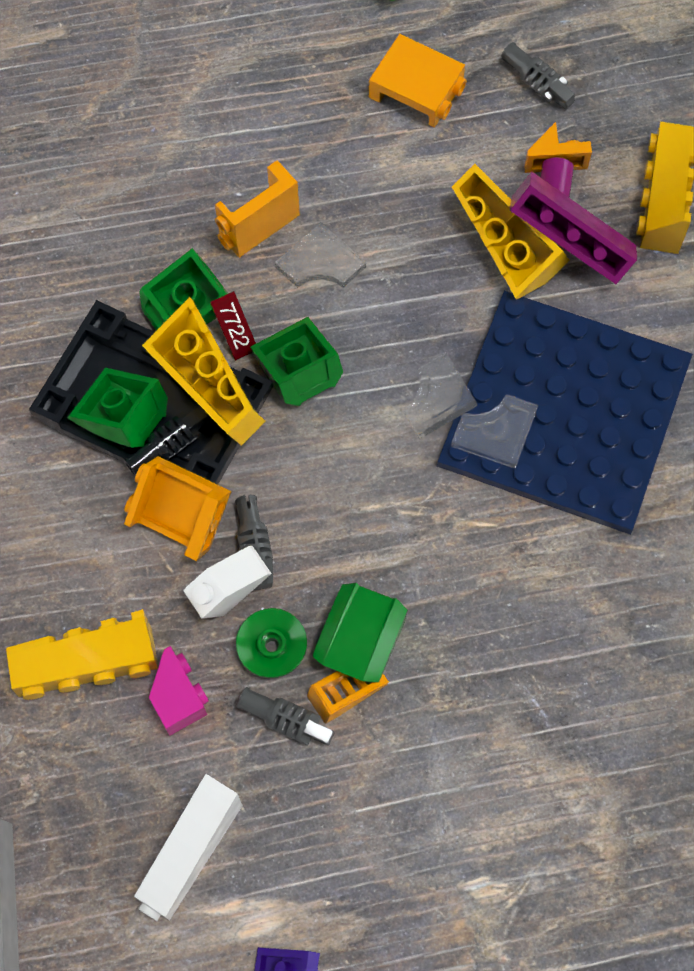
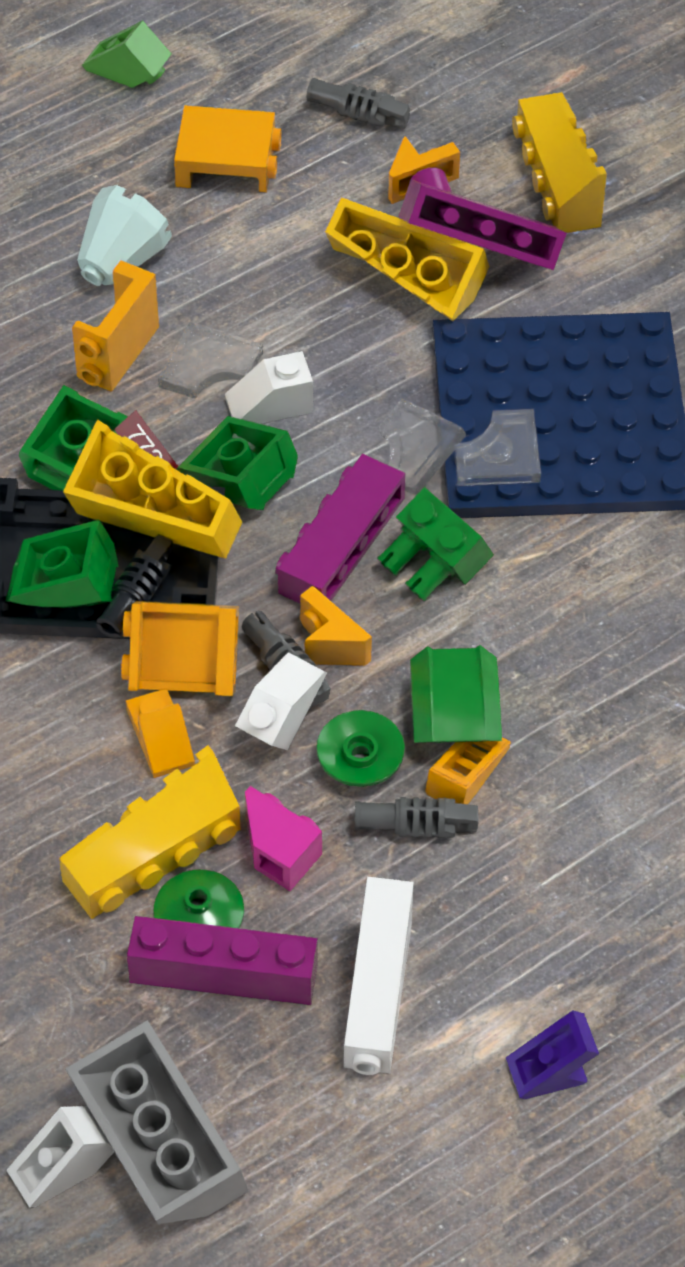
camera: 25 degrees left, 15 degrees down
(86, 780) = (222, 960): none -> magenta brick
(98, 740) = (223, 899): none -> green dish
(136, 564) = (161, 732): none -> light orange slope
(297, 131) = (120, 231): none -> light aqua cone
(299, 541) = (334, 635): none -> light orange slope
(345, 450) = (342, 529): none -> magenta brick
(351, 307) = (273, 390): none -> white slope
(419, 490) = (447, 538): none -> green brick

